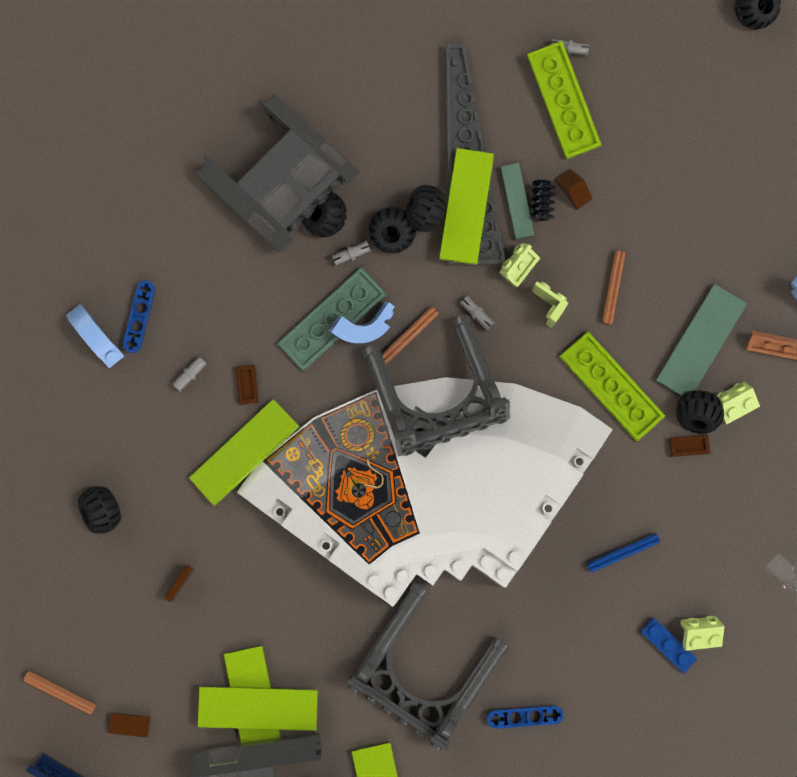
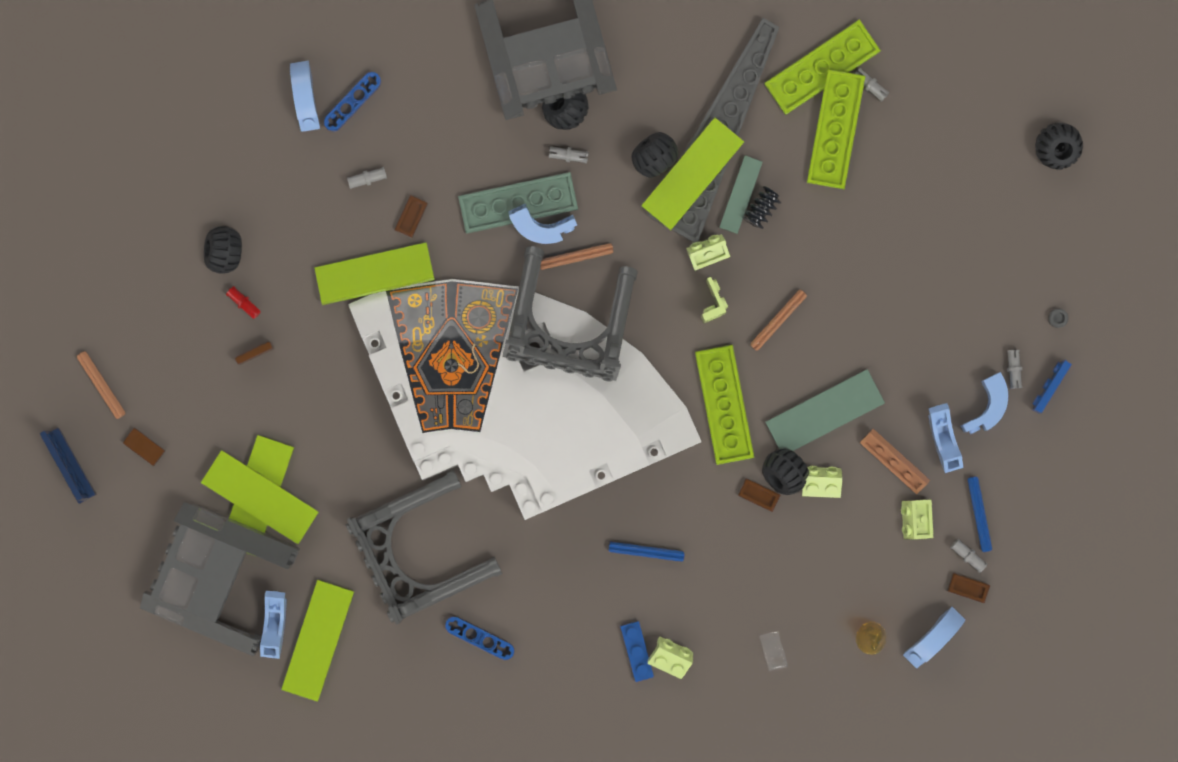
camera: 30 degrees right, 5 degrees up
(144, 545) = (243, 302): none -> red axle
(383, 238) = (605, 161): black wheel -> none
(477, 313) = (646, 272): light grey pin -> none
(513, 68) = (808, 75): none -> lime tile
(574, 188) = (797, 213): reddish brown slope -> none

